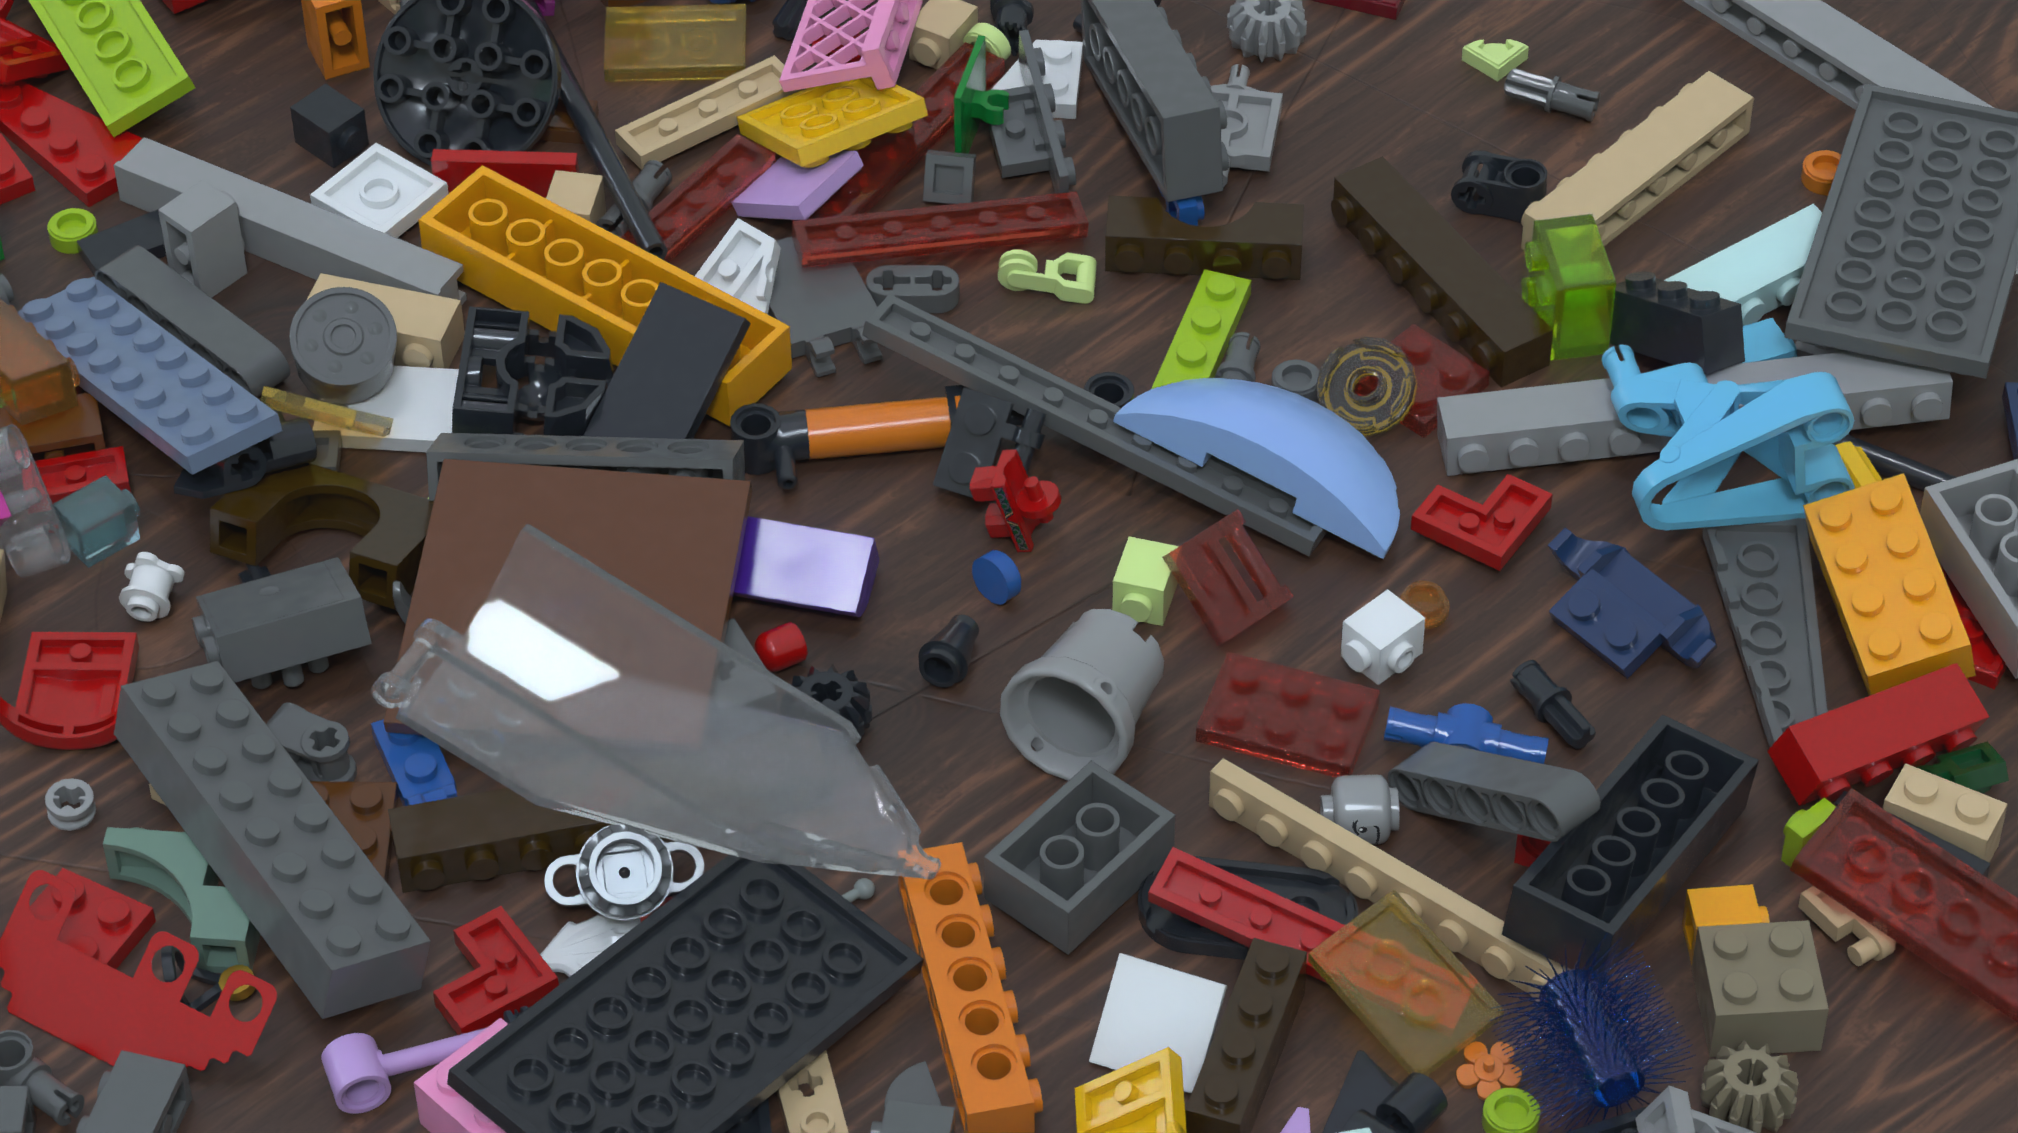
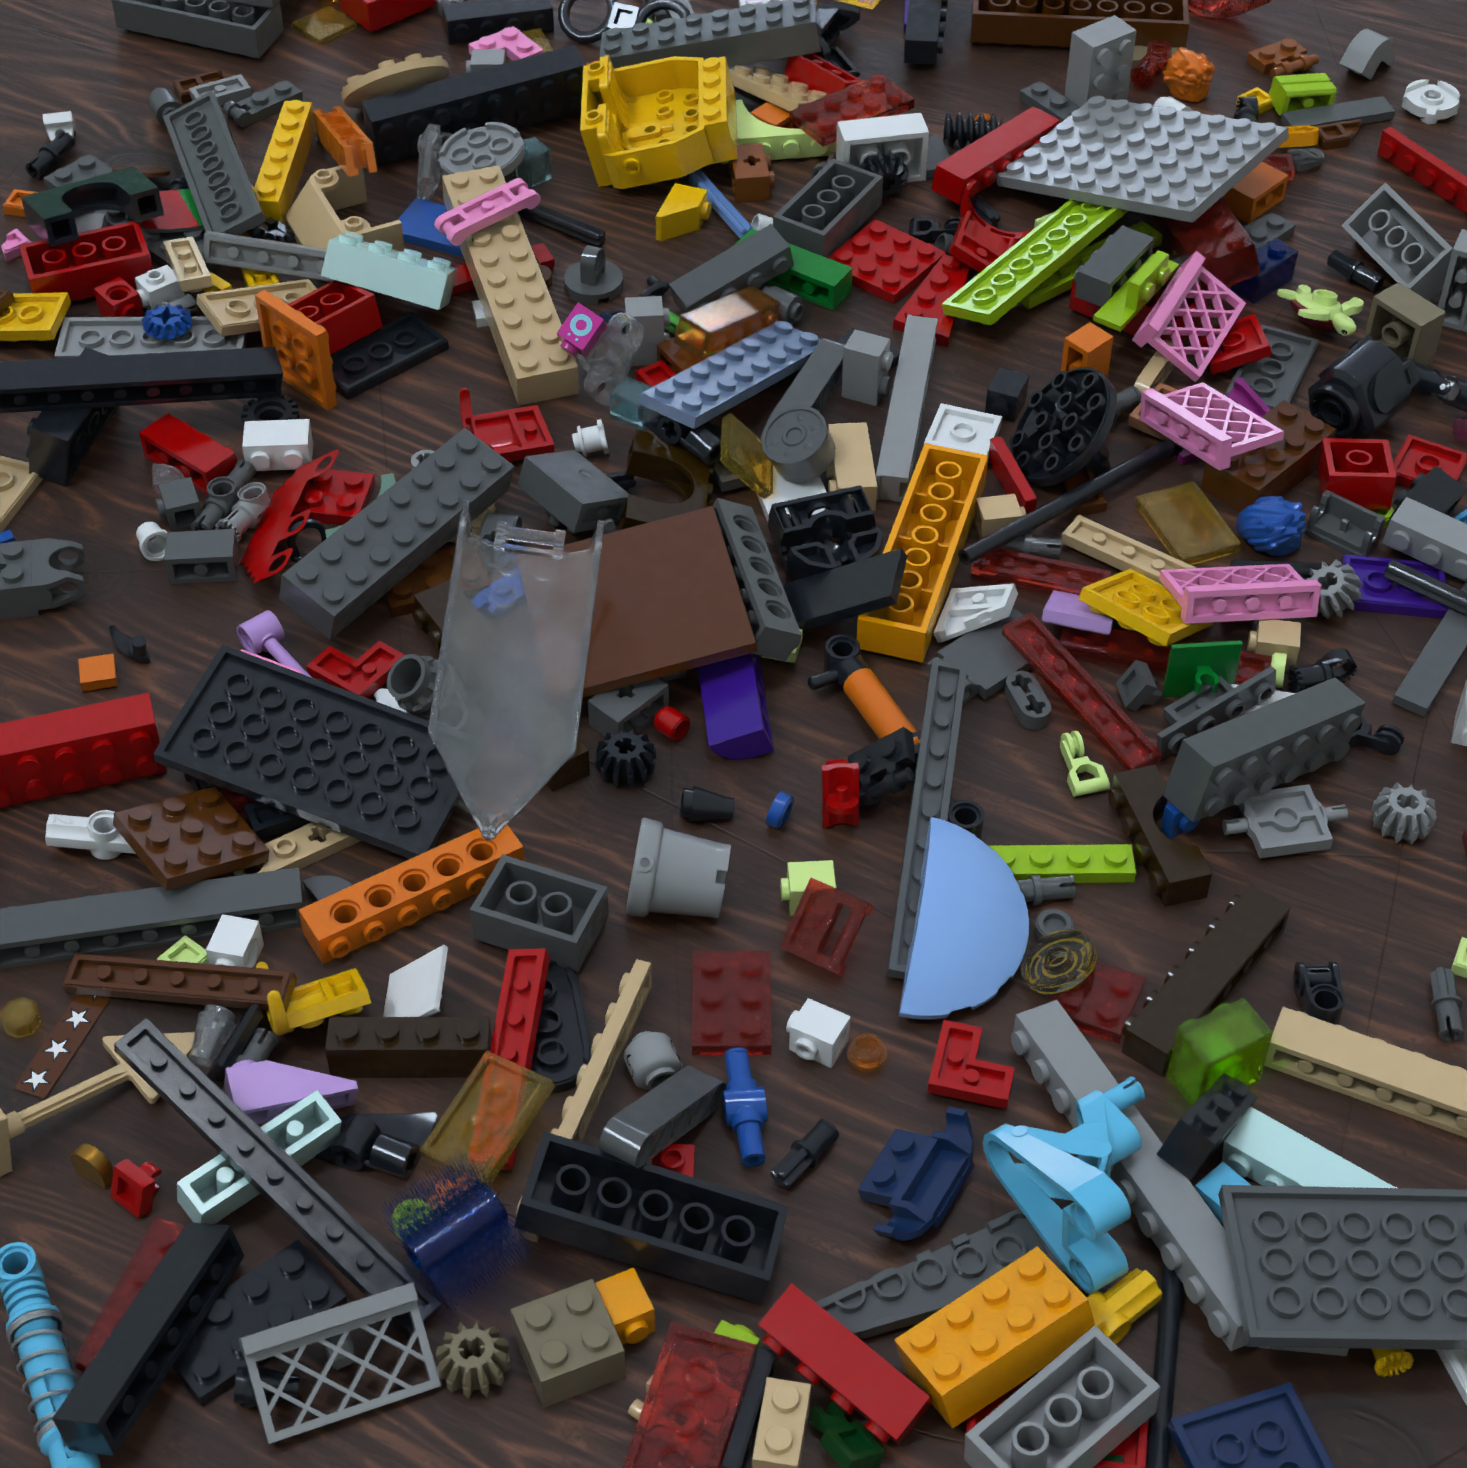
camera: 70 degrees right, 0 degrees up
(51, 1044) = (246, 510): none -> light grey connector
(70, 226) = (867, 323): lime tile -> none

